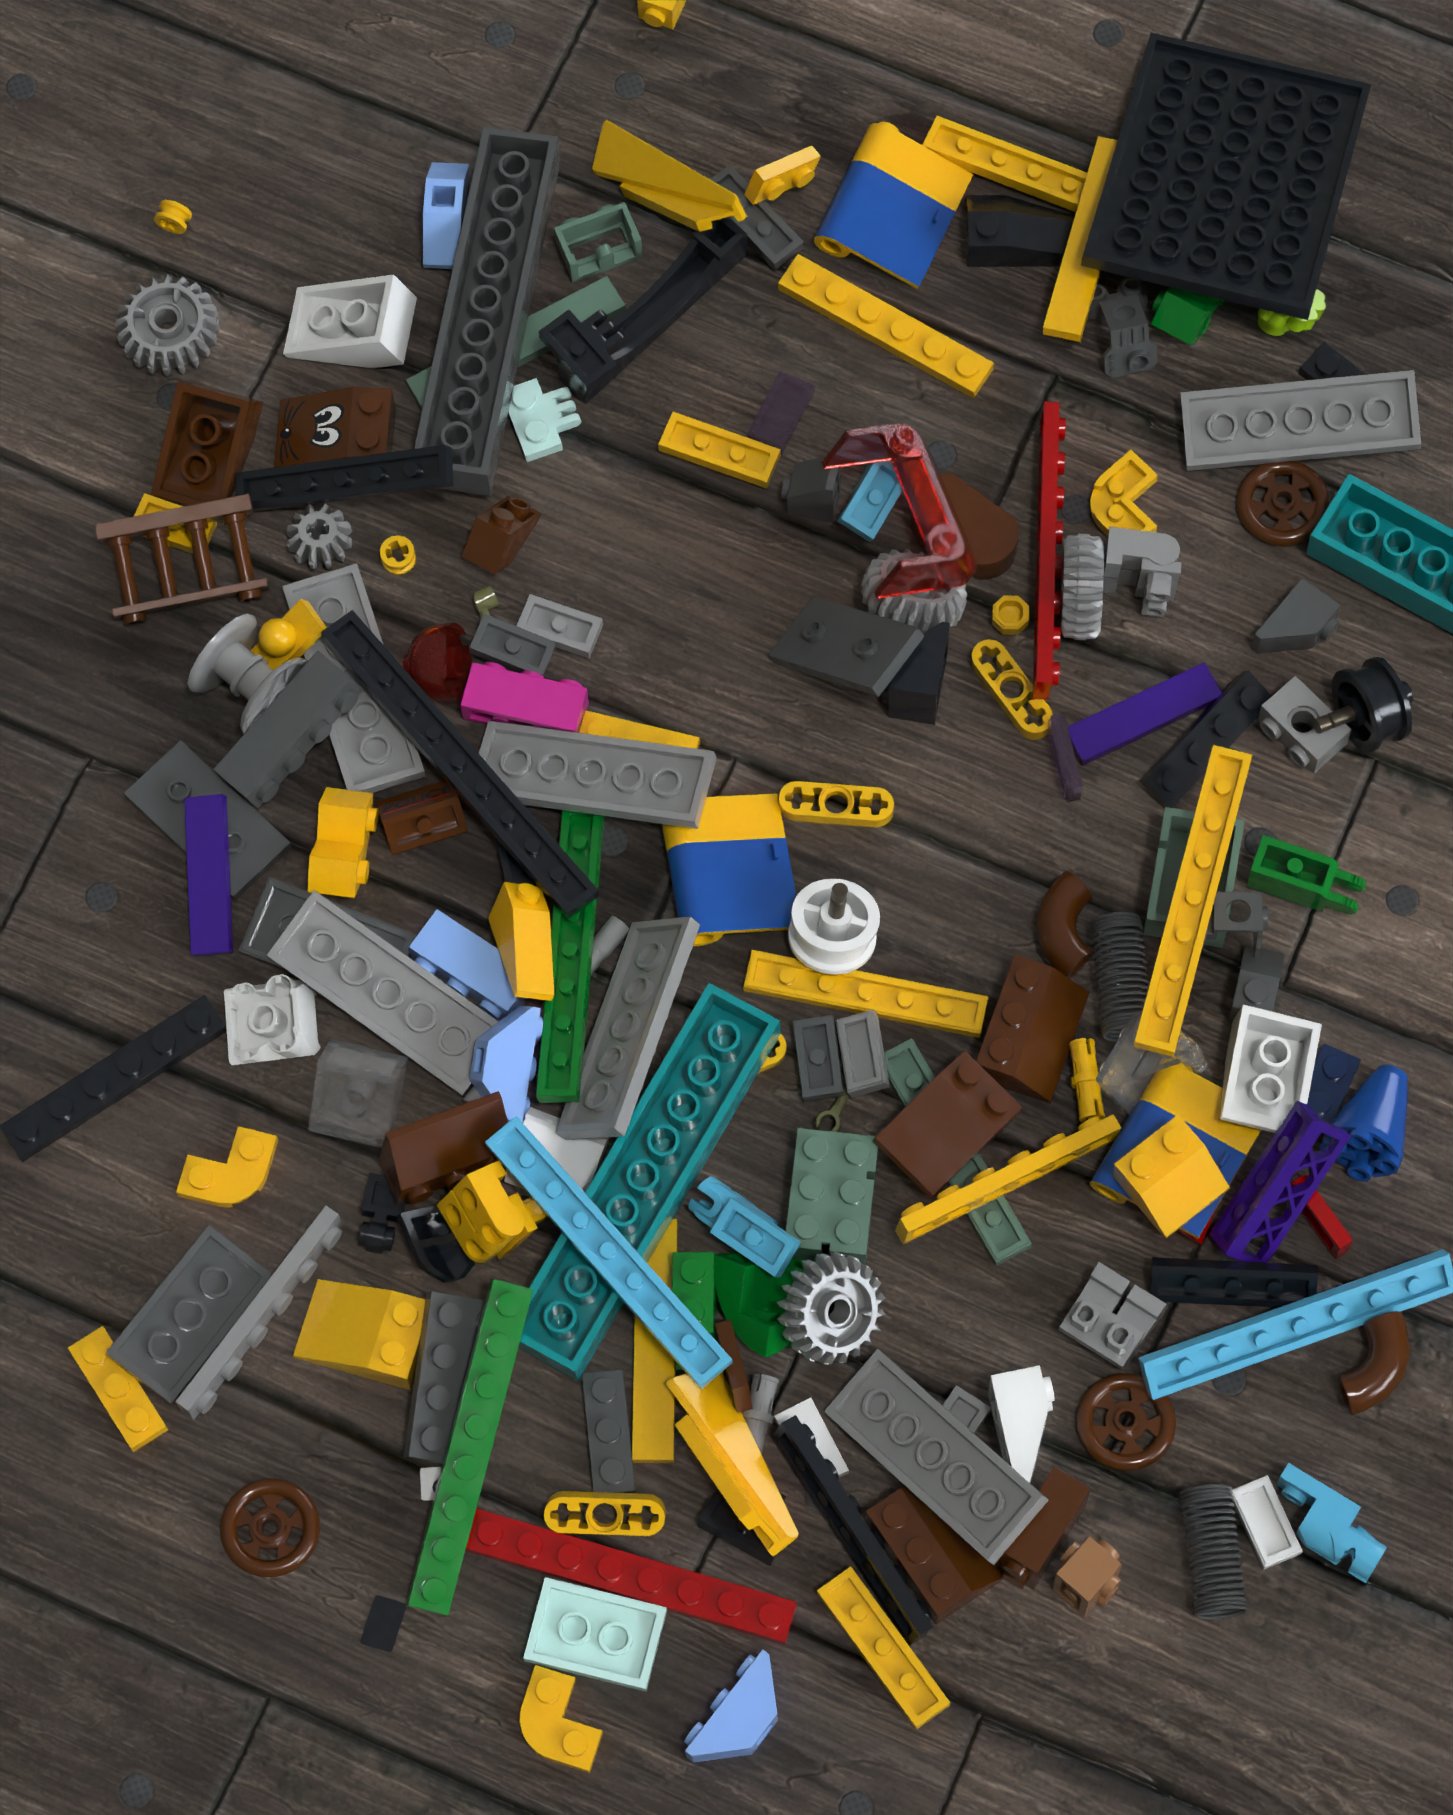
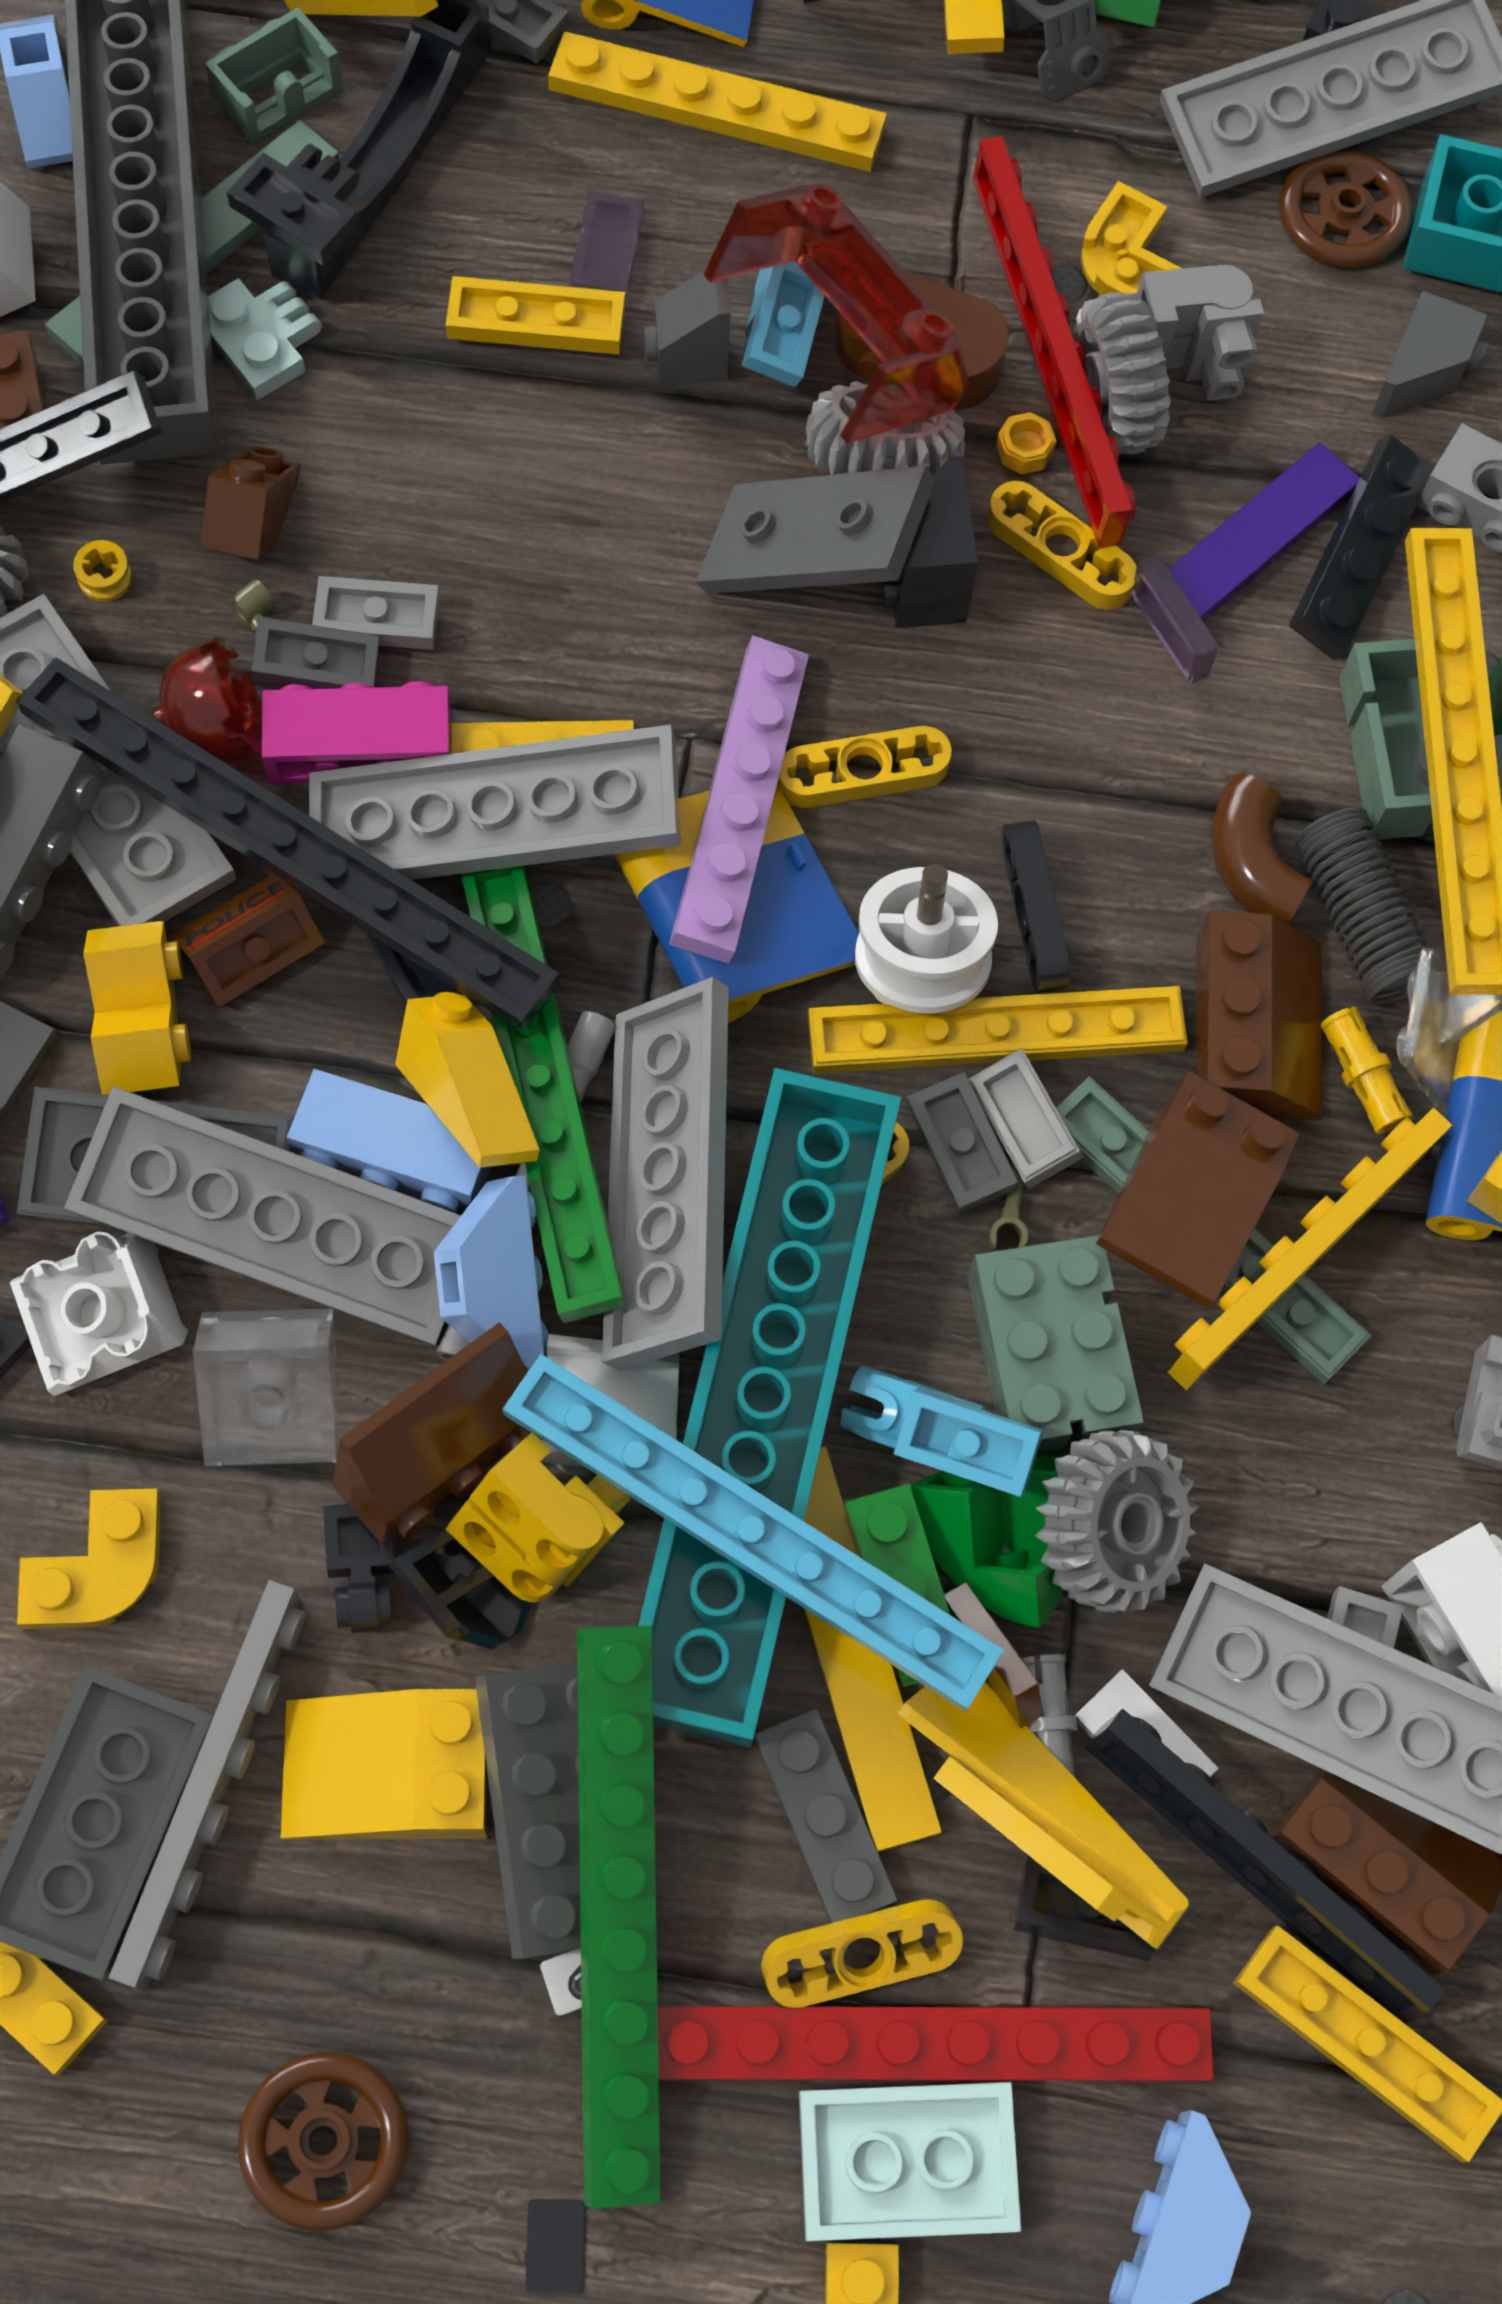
camera: 25 degrees left, 0 degrees up
(748, 805) = (739, 801): none -> lavender plate
(913, 921) = (1035, 906): none -> black beam

